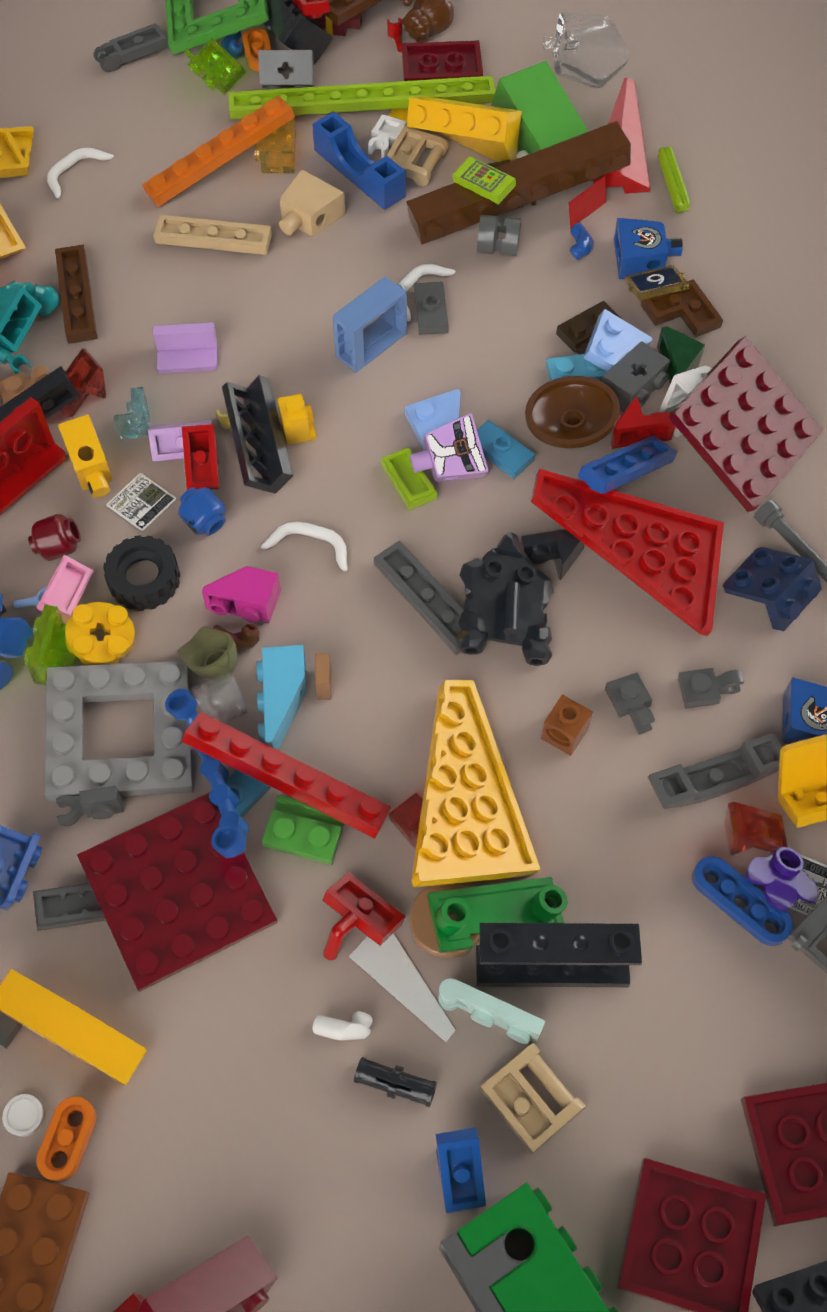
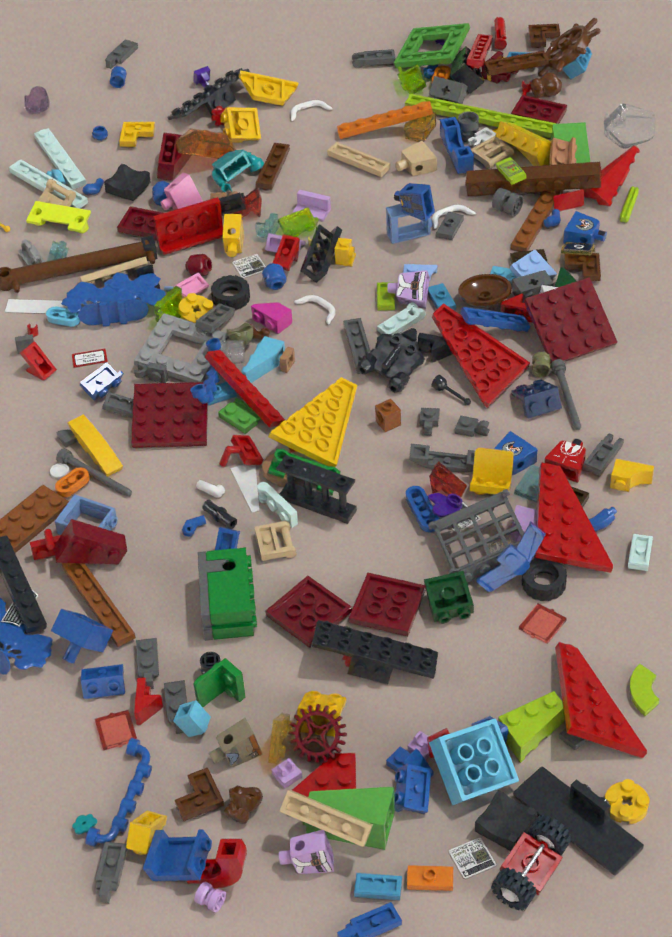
camera: 30 degrees right, 15 degrees down
(24, 1080) = (66, 457): none -> dark grey piece
(106, 1227) = (89, 507): none -> medium blue window
(148, 642) = (215, 318): none -> dark grey plate
(181, 389) = (298, 222): none -> clear neon green bracket
(354, 1134) = (191, 525): none -> blue arm
(358, 112) = (468, 125): none -> dark grey wheel
(386, 288) = (416, 200): none -> blue torso
(463, 519) = (402, 320): none -> light aqua plate
(544, 122) = (562, 151): none -> nougat bracket
(555, 257) = (534, 221): none -> dark orange plate
(608, 620) = (440, 383): none -> black hinge
(741, 519) = (541, 364): none -> olive wheel

